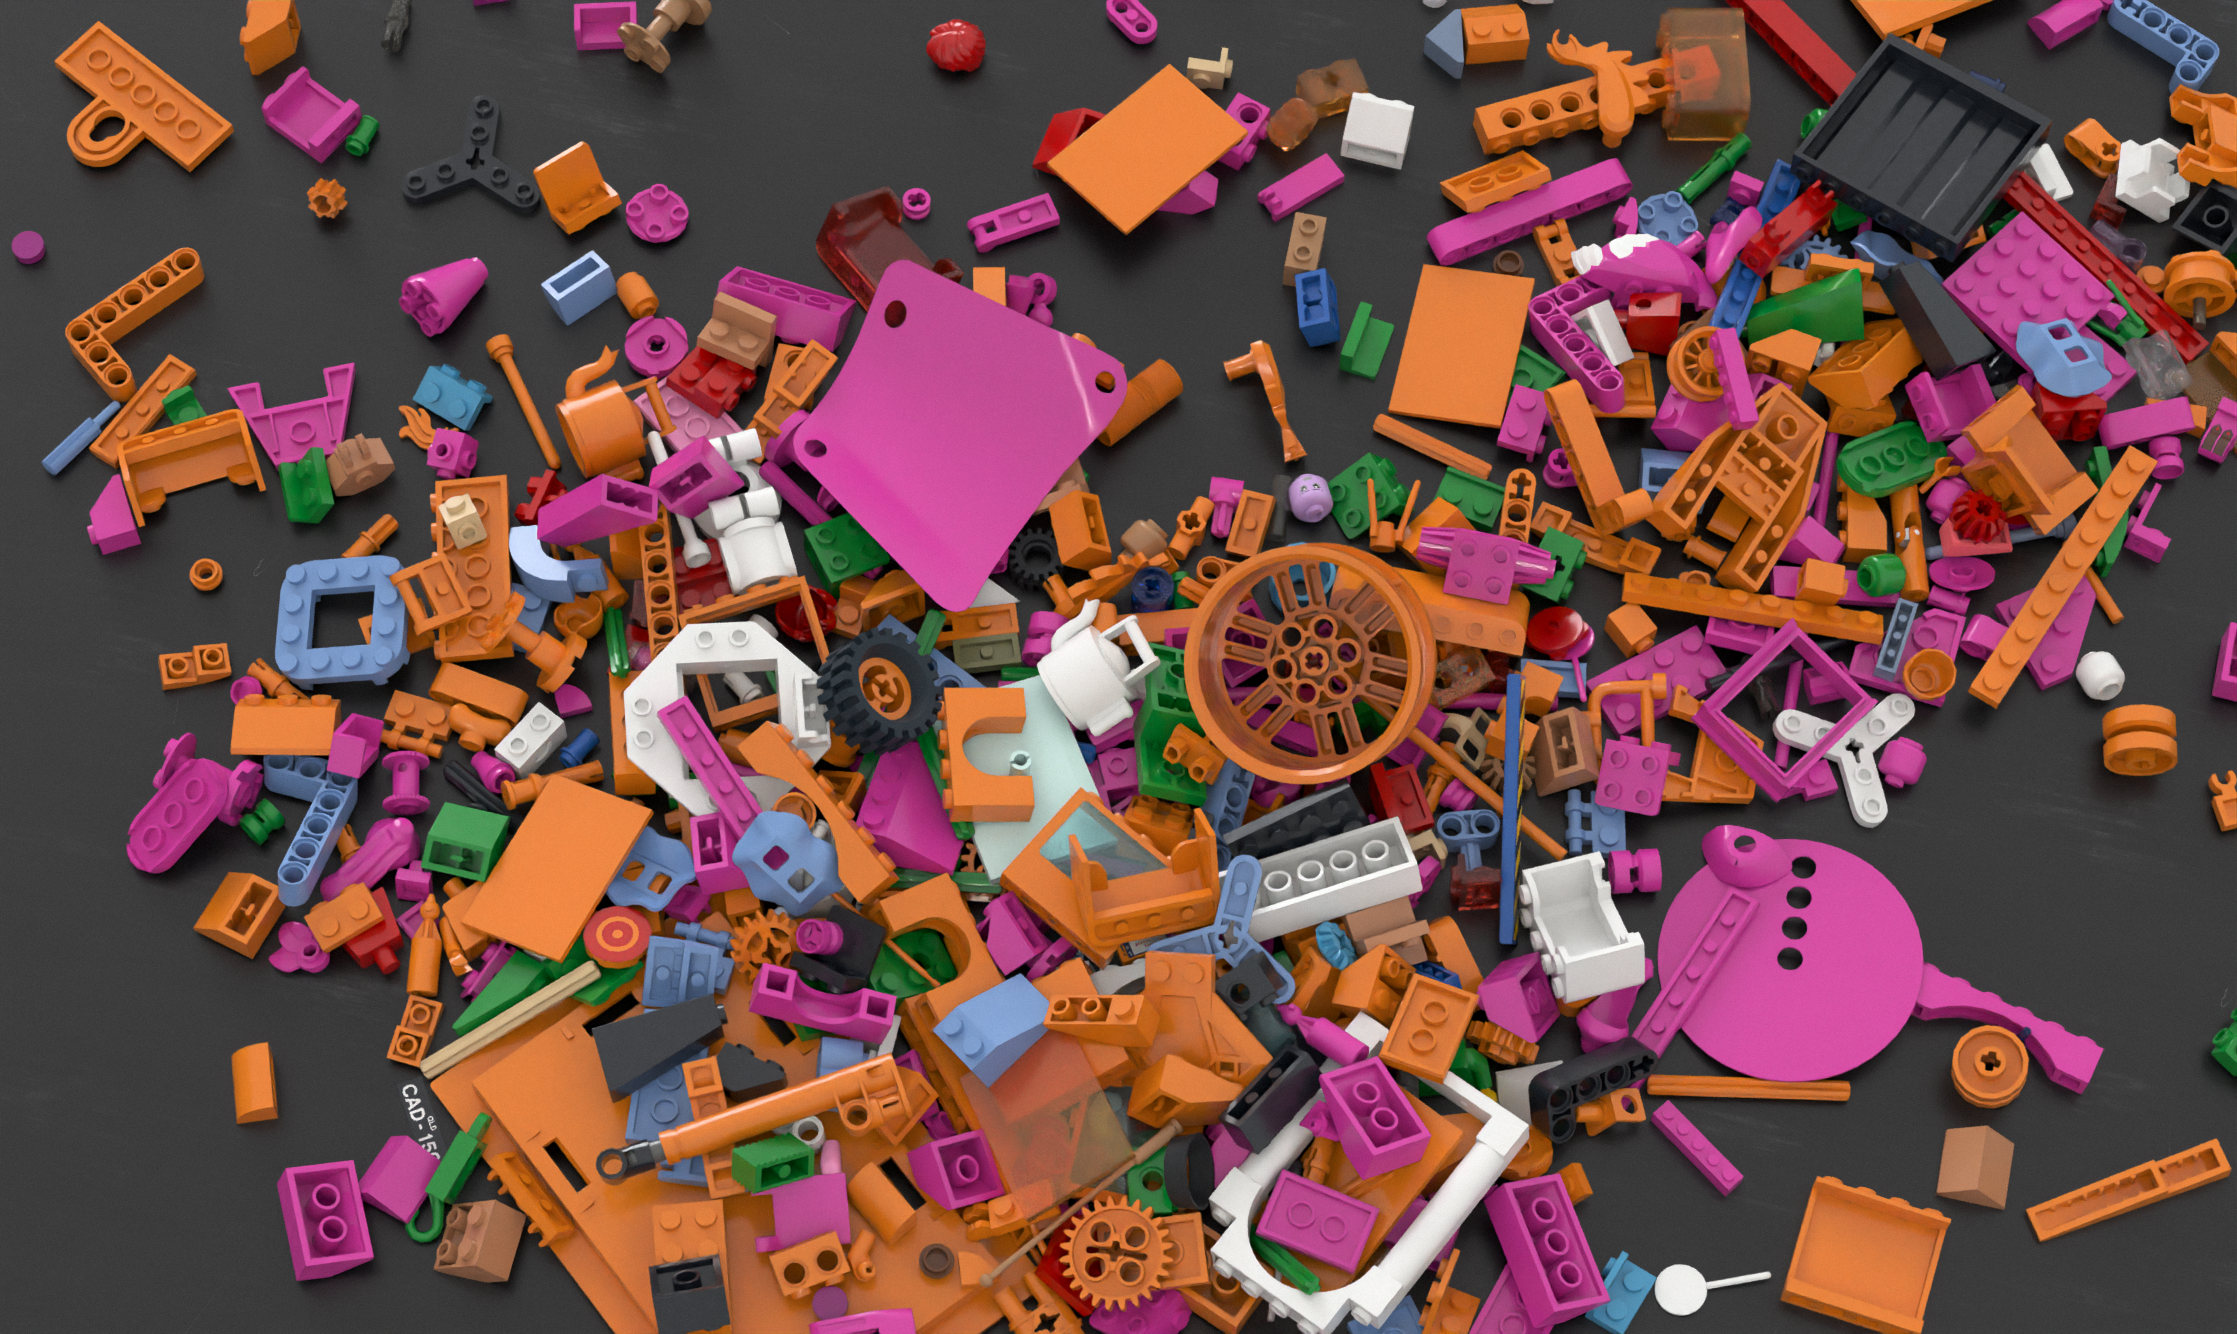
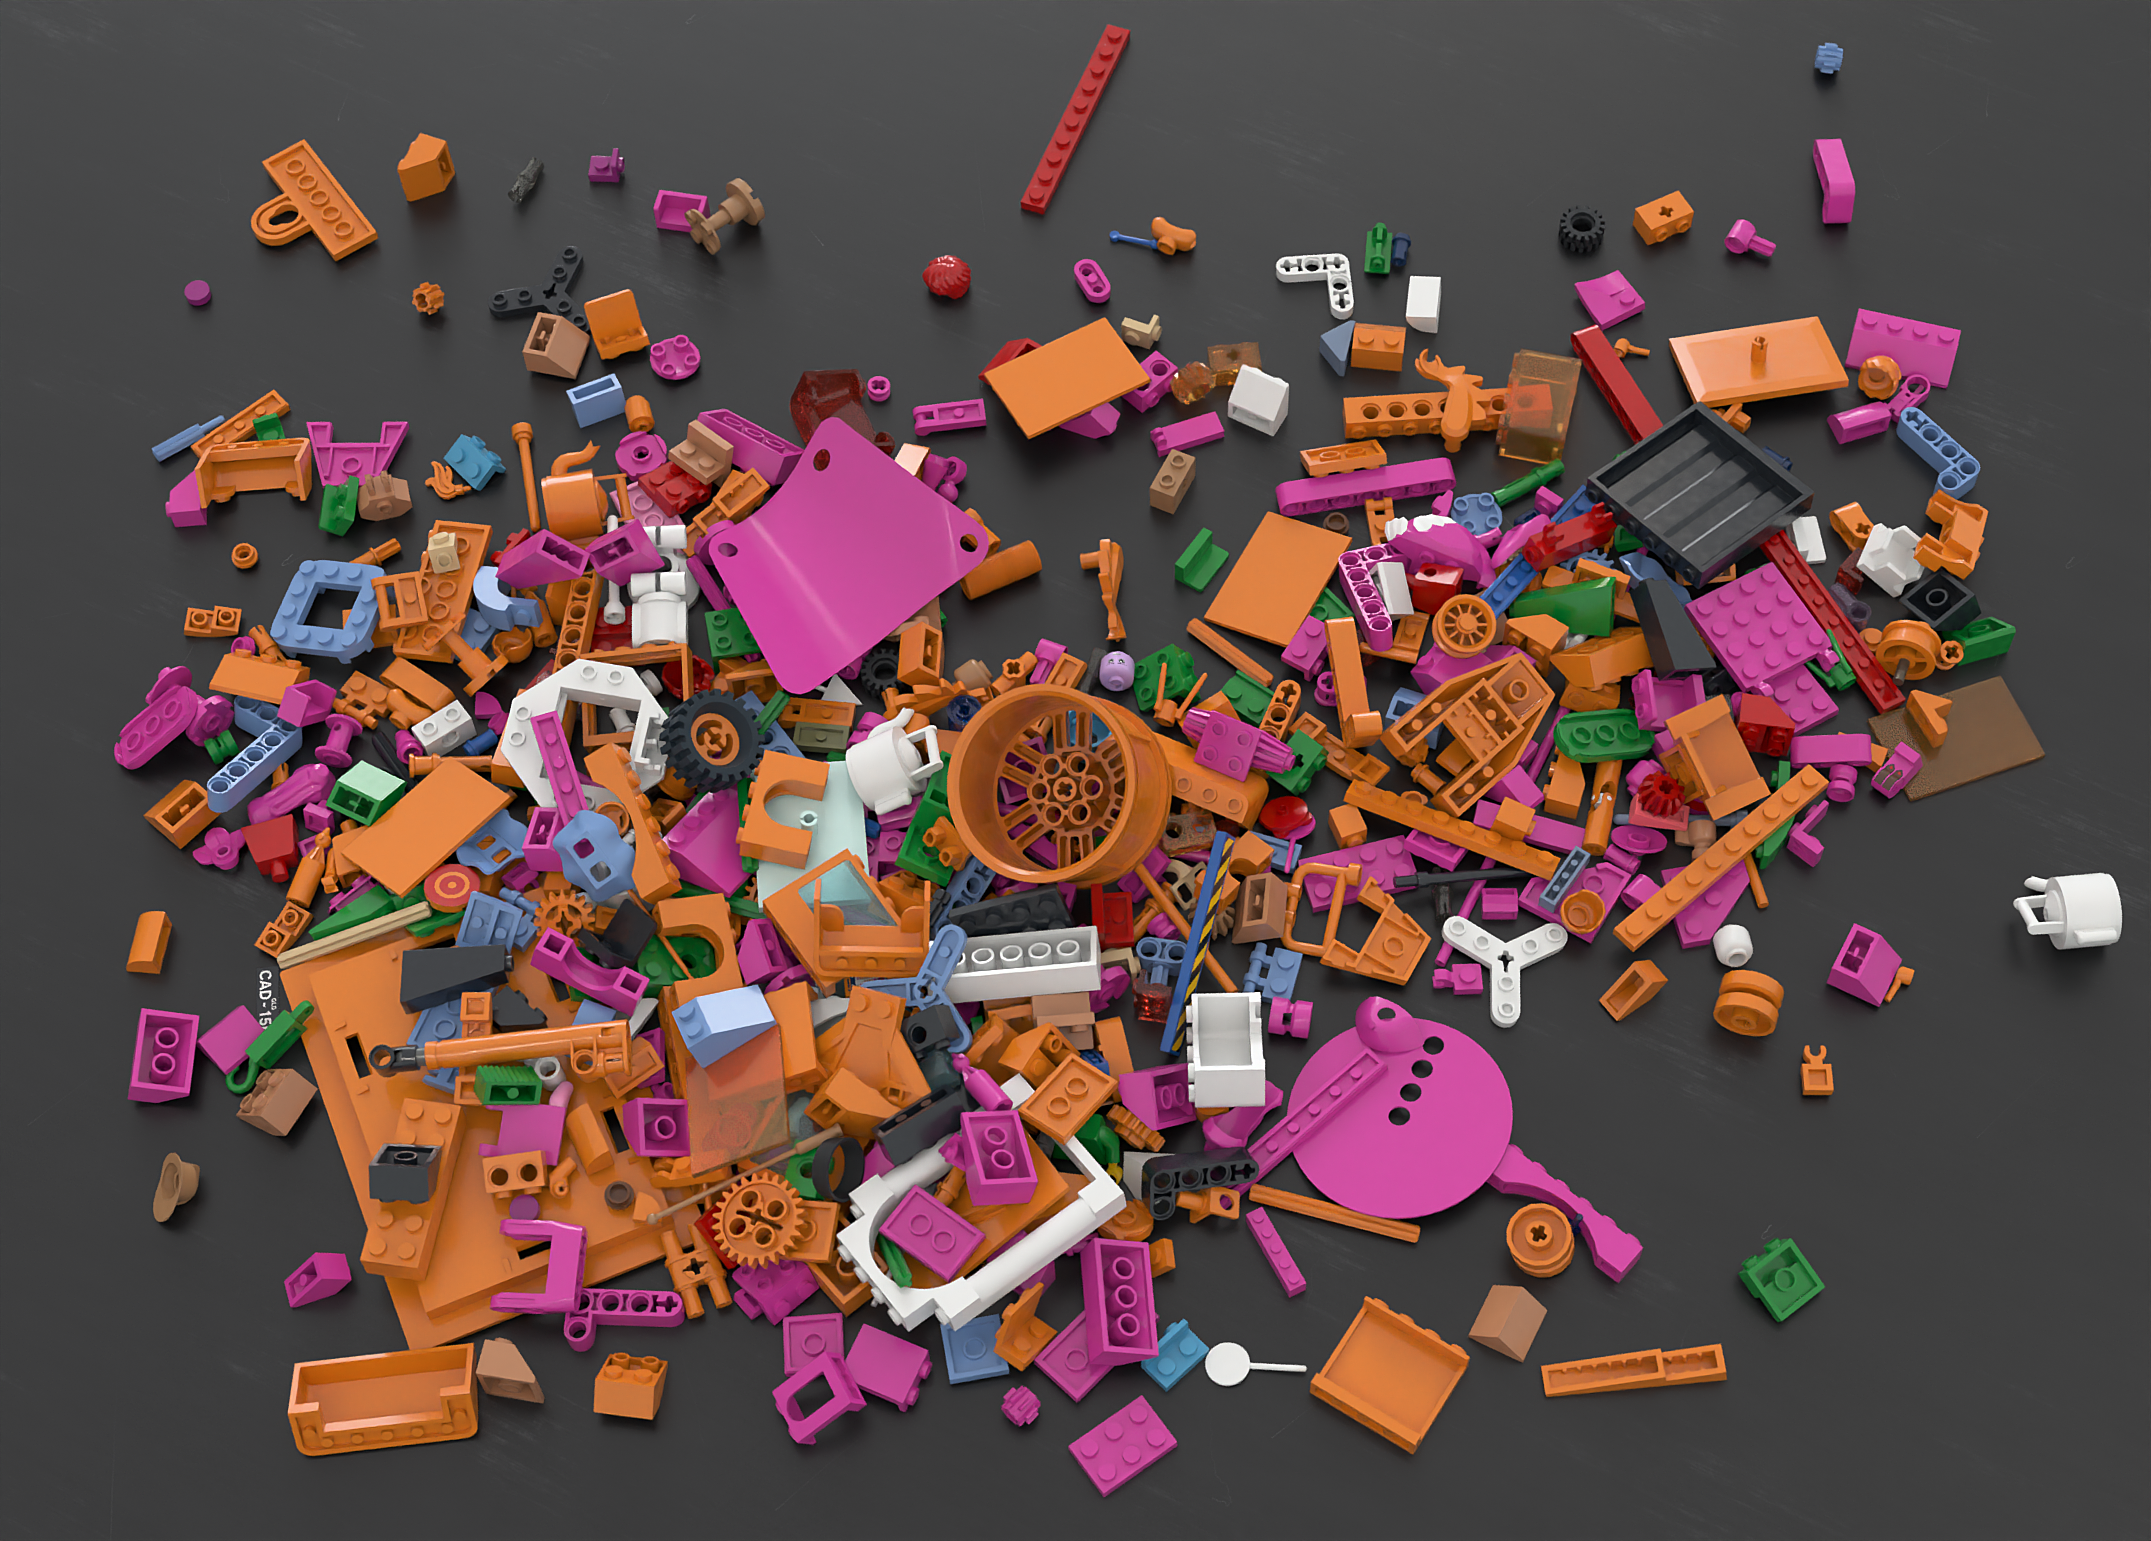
camera: 20 degrees right, 5 degrees down
(128, 317) = (253, 351): orange beam -> none
(310, 115) = (438, 236): dark pink panel -> none
(344, 916) = (253, 829): orange bracket -> none
(361, 137) = (472, 258): green pin -> none
(442, 293) = (490, 383): dark pink cone -> none
(452, 454) = (457, 503): dark pink brick -> none
(507, 229) = (555, 346): none -> nougat slope
(530, 1197) = (324, 1075): orange plate -> none
(595, 717) = (498, 722): none -> dark pink plate
(616, 642) = (534, 667): green axle -> none
(819, 937) = (606, 920): dark pink wheel -> none
(1105, 1018) = (808, 1031): orange slope -> none
(1317, 307) = (1168, 525): blue brick -> none
(1335, 945) = (1011, 1011): dark azure gear -> none
(1634, 775) = (1310, 939): dark pink bracket -> none
(1733, 379) = (1478, 640): dark pink piece -> none
(1742, 749) = (1406, 938): dark pink piece -> none
(1881, 575) = (1567, 825): green head -> none
(1902, 762) = (1542, 979): dark pink head -> none
(1941, 469) = (1644, 751): orange hand -> none
(2005, 751) = (1633, 989): none -> orange slope
(2028, 554) = (1699, 834): none -> nougat piece
(2052, 365) = (1758, 690): medium blue piece -> none
(2158, 365) = (1854, 707): clear bracket -> none

